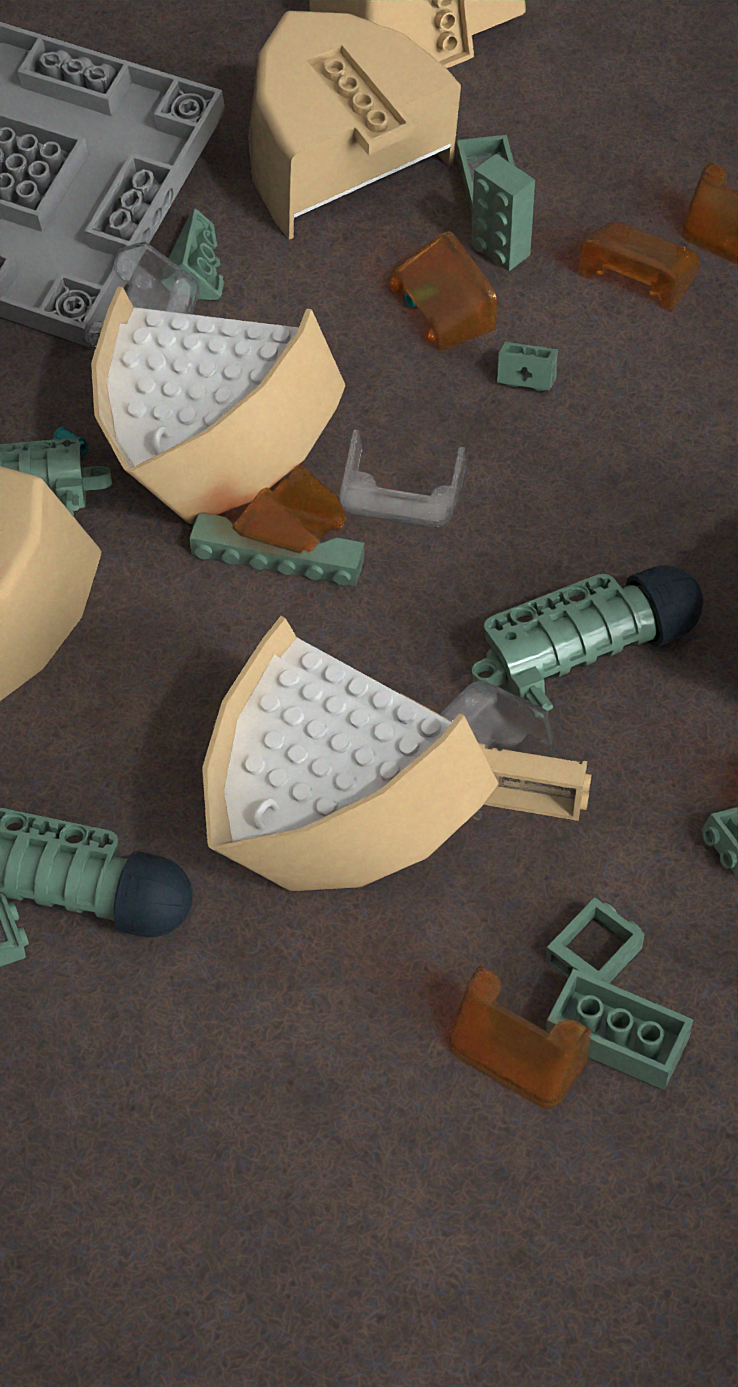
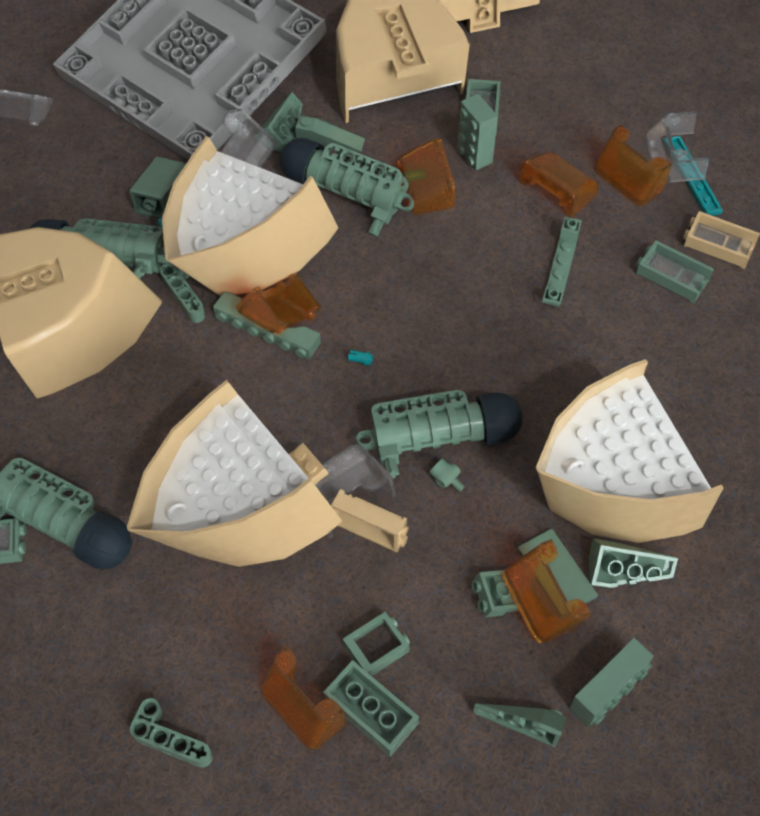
camera: 15 degrees right, 5 degrees up
(41, 386) = (154, 187): none -> sand green slope
(112, 513) = (175, 282): none -> sand green beam
(269, 261) = (327, 133): none -> sand green wedge
(347, 1137) = (173, 738): none -> sand green beam
(348, 318) = (349, 179): none -> sand green piece
(363, 498) = (329, 303): clear windscreen -> none
(433, 565) = (361, 357): none -> teal pin
(527, 366) = (463, 236): sand green brick -> none
(615, 698) = (446, 474): none -> sand green piece
(681, 372) = (562, 262): none -> sand green slope

